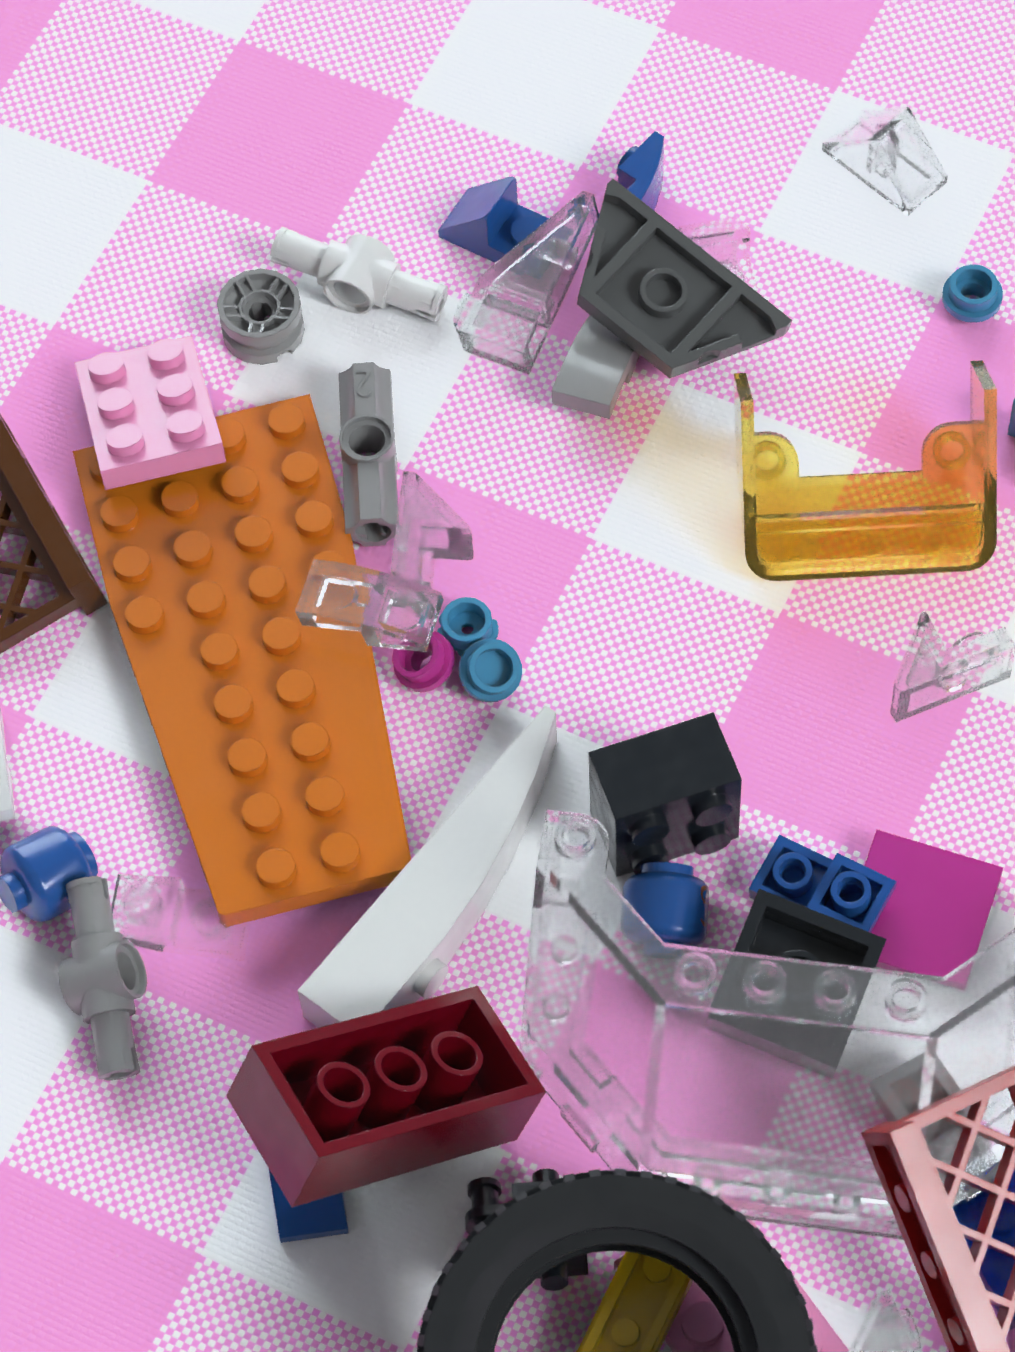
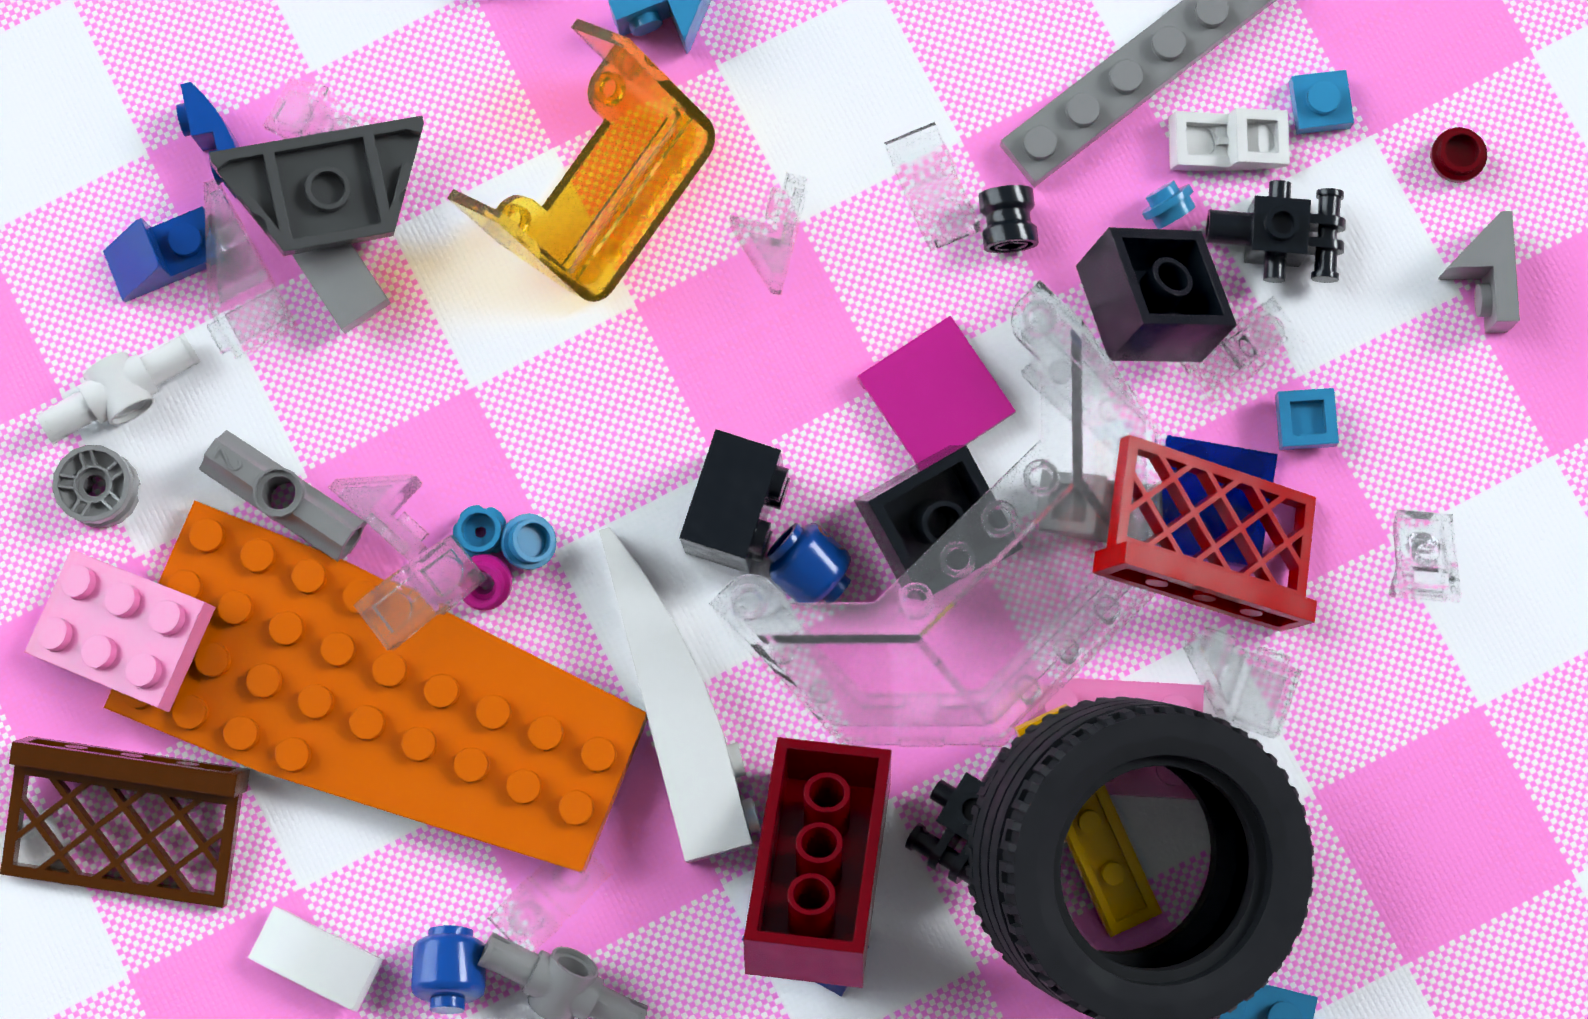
camera: 50 degrees left, 20 degrees up
(825, 885) = (875, 447): blue slope -> none

